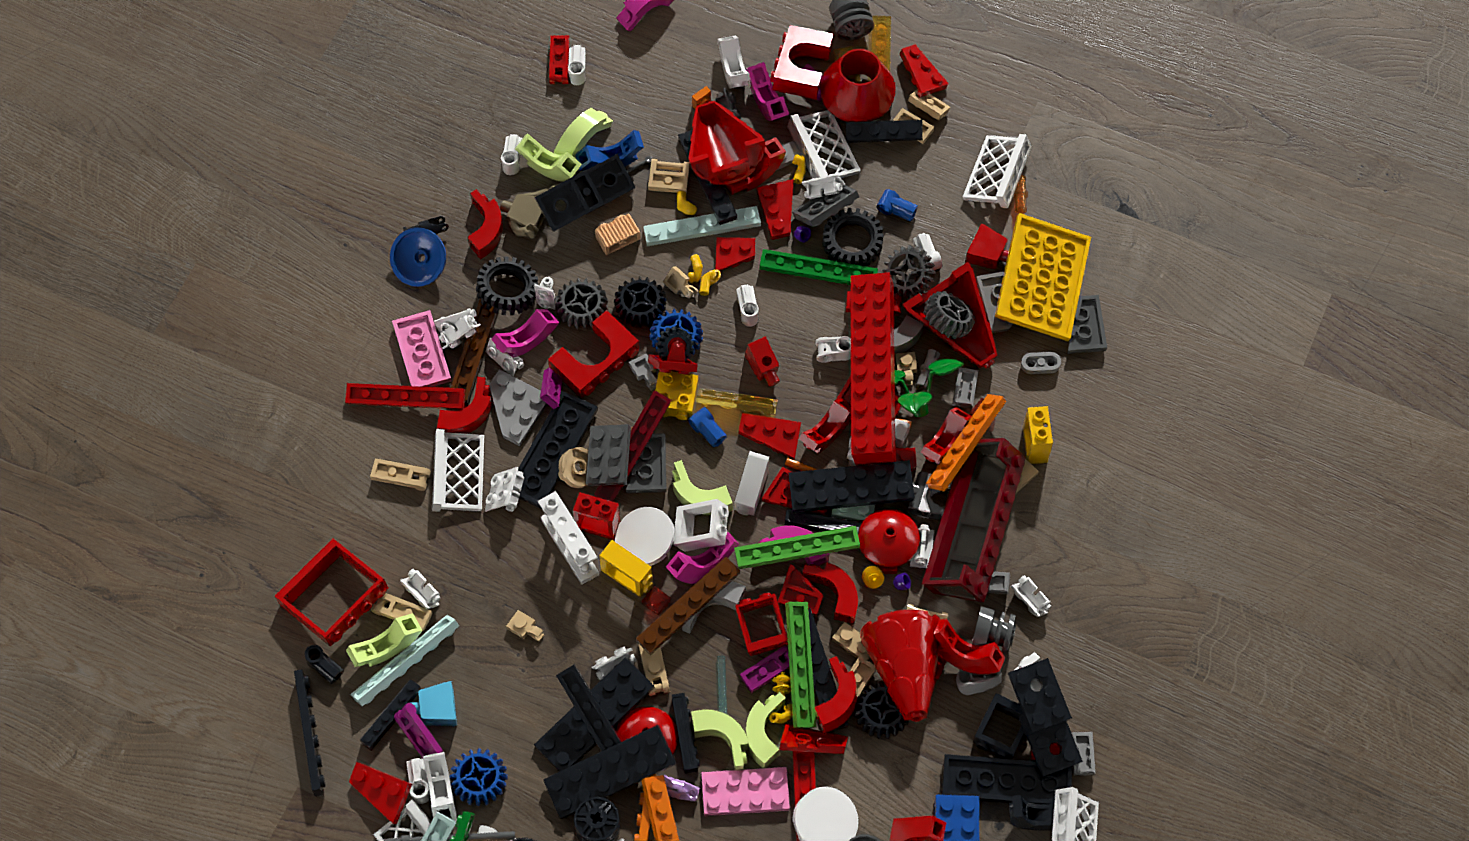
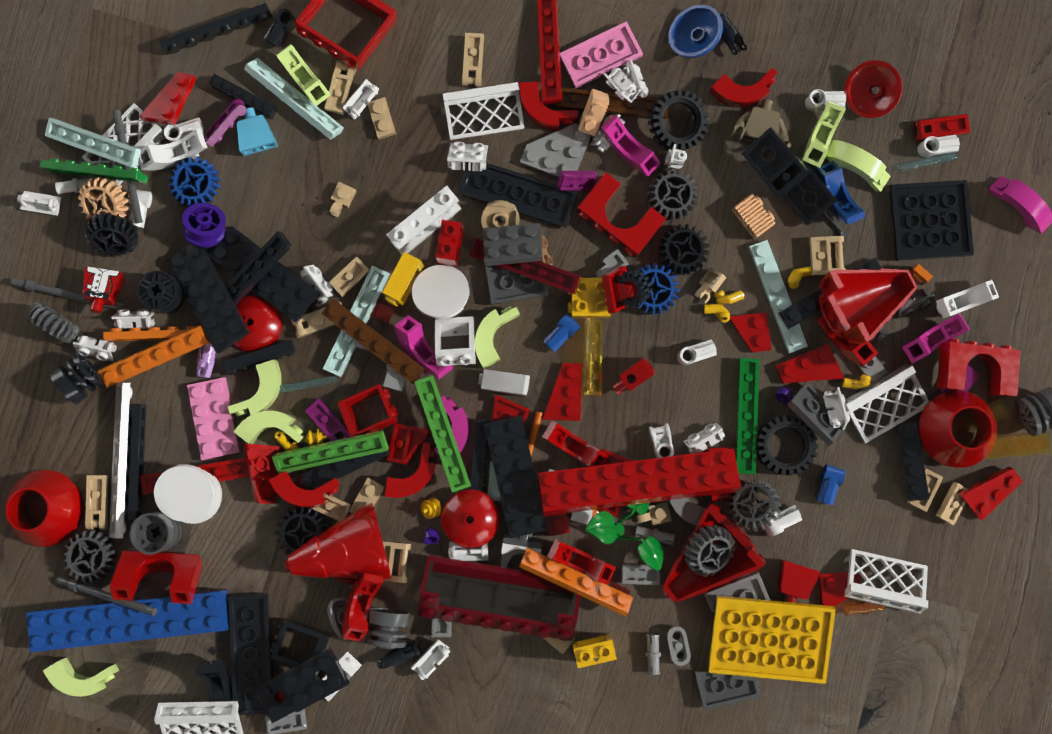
camera: 85 degrees right, 20 degrees up
(445, 574) = (381, 118): none -> tan plate
(484, 360) = (594, 112): none -> light nougat brick
(514, 95) = (861, 84): none -> red dish
(529, 767) = (203, 224): none -> dark purple wheel
(590, 76) = (929, 161): none -> clear light blue bar
(612, 628) = (349, 276): none -> tan plate
(644, 616) = (362, 309): none -> light aqua plate
(649, 82) = (931, 220): none -> black plate
(832, 303) = (711, 433): none -> white hinge
(998, 218) = (833, 587): none -> red wing
(1024, 629) = (399, 655): none -> black piece
(1046, 387) = (653, 653): none -> light grey pin

